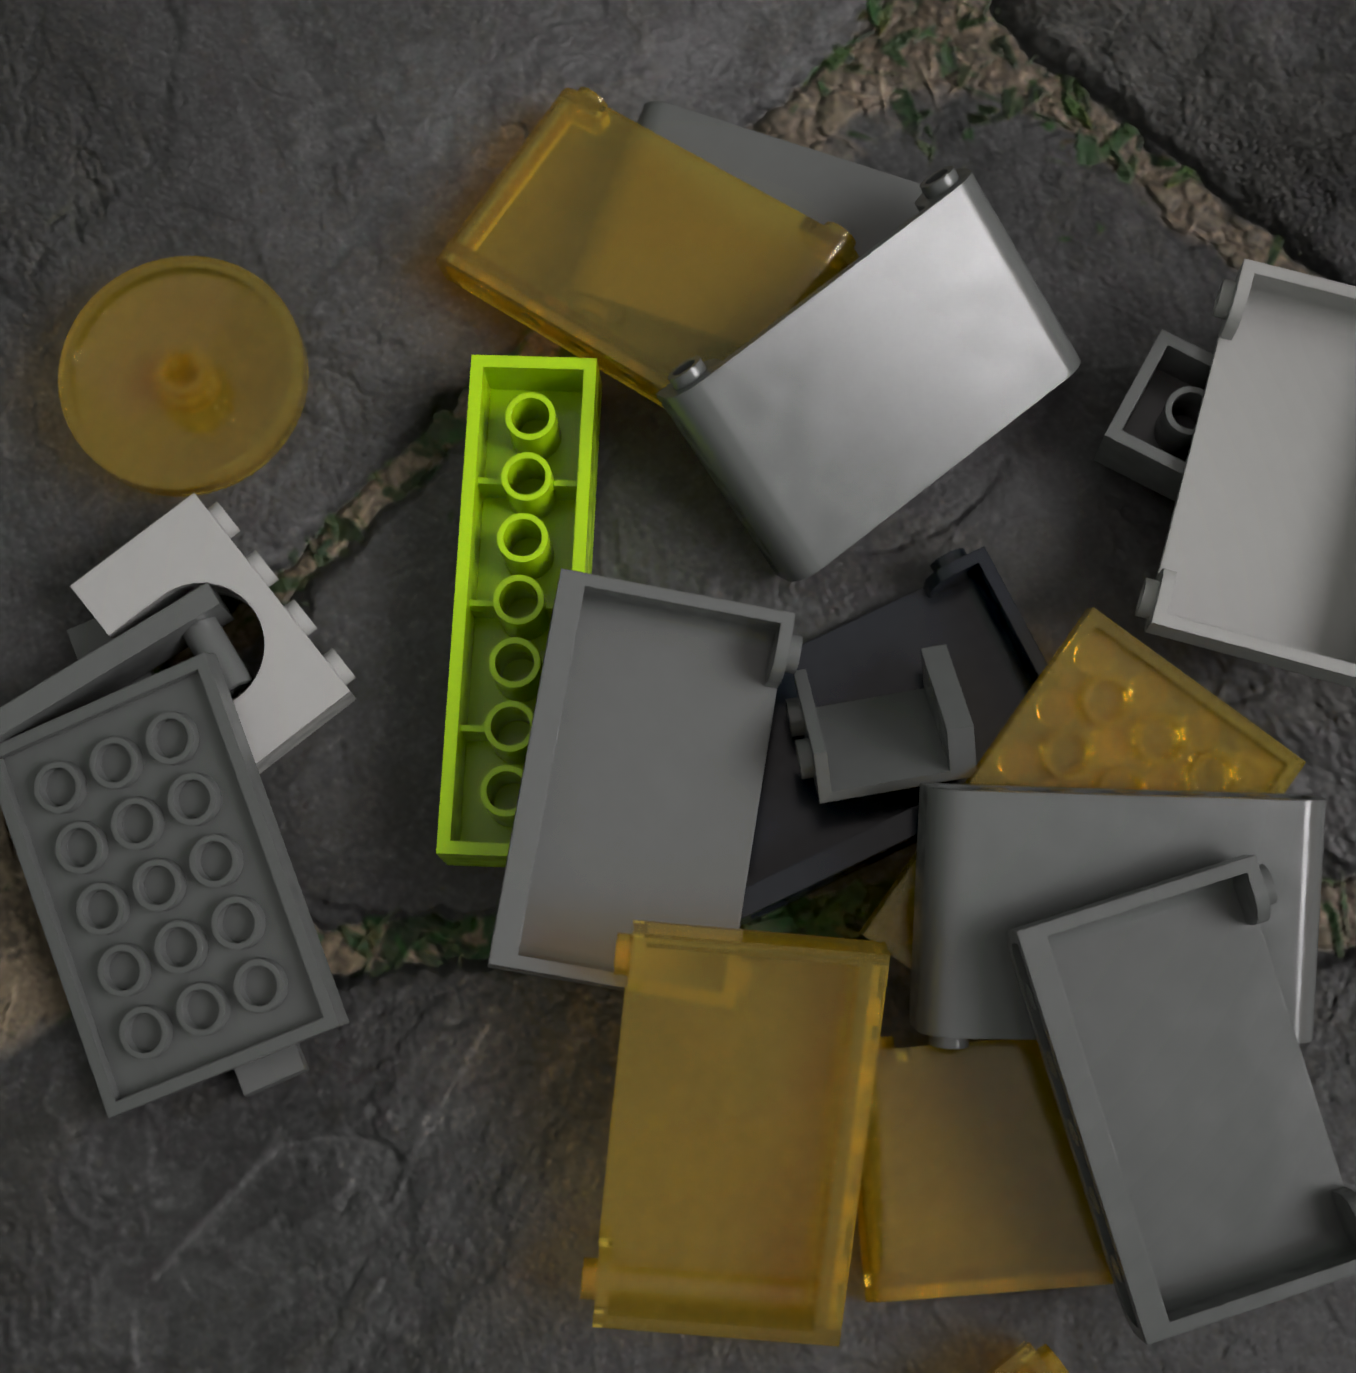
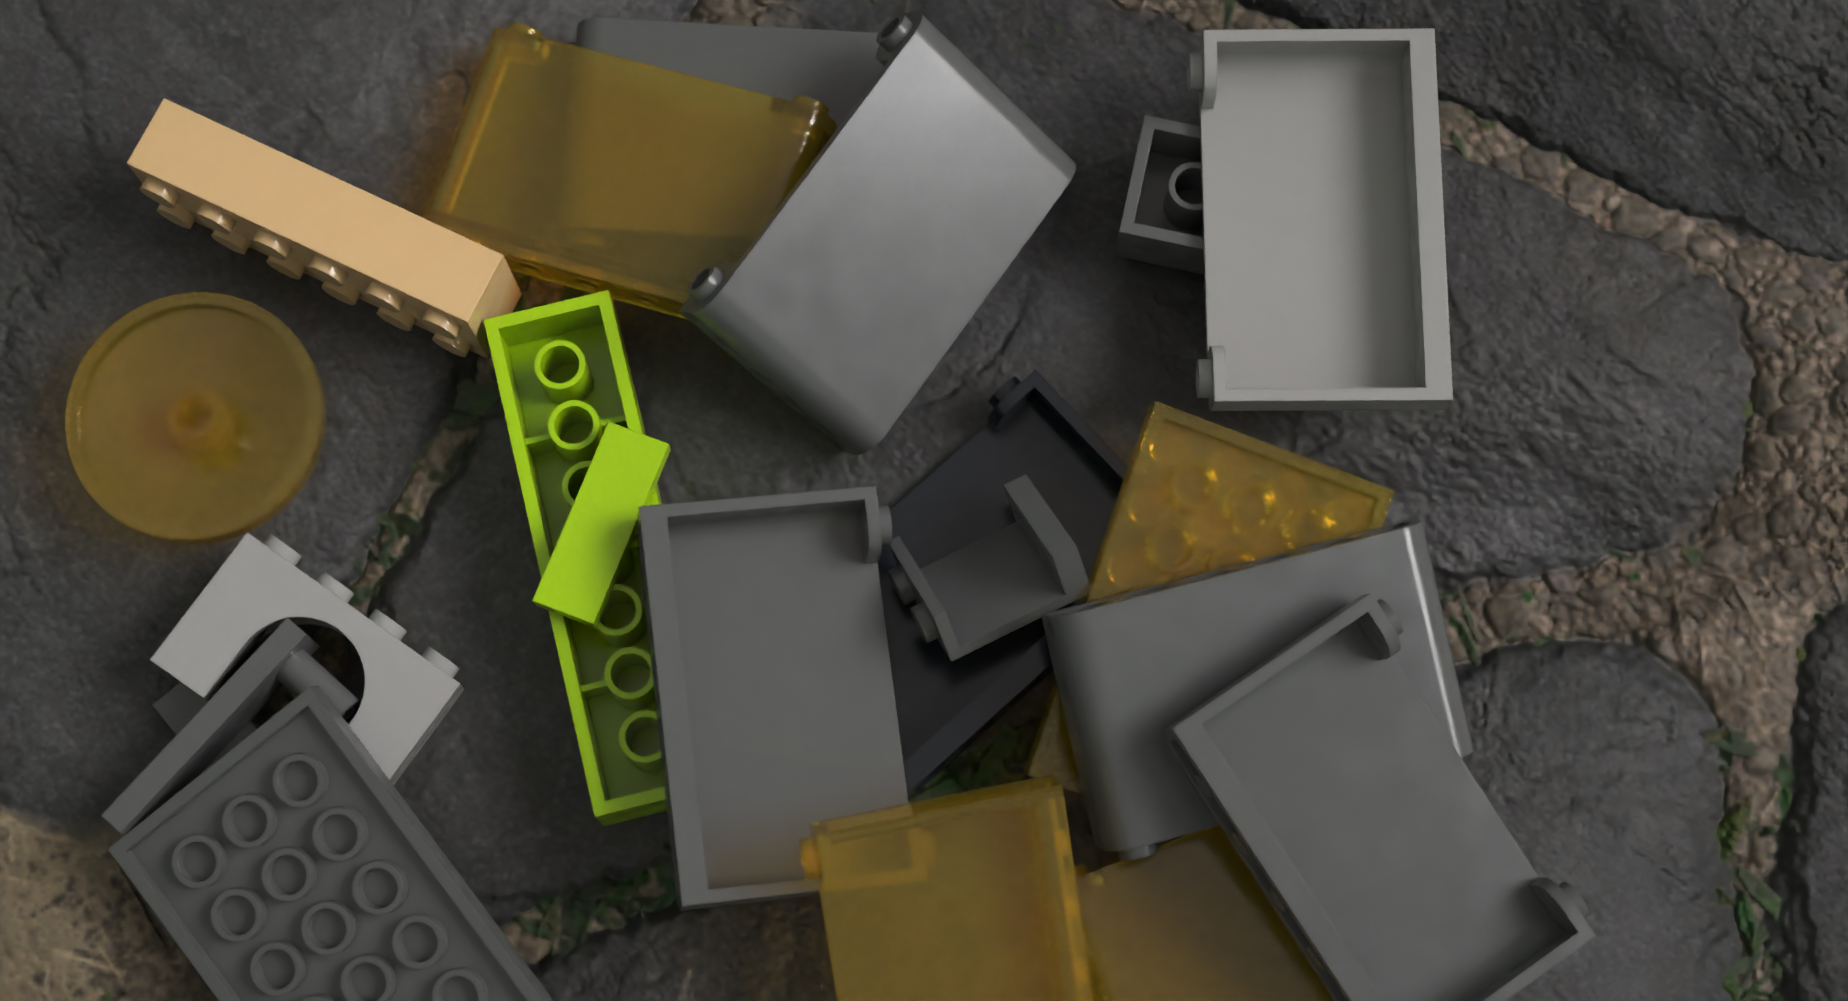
camera: 25 degrees left, 0 degrees up
(349, 231) = (323, 229): none -> tan brick
(523, 577) = (601, 524): none -> lime tile

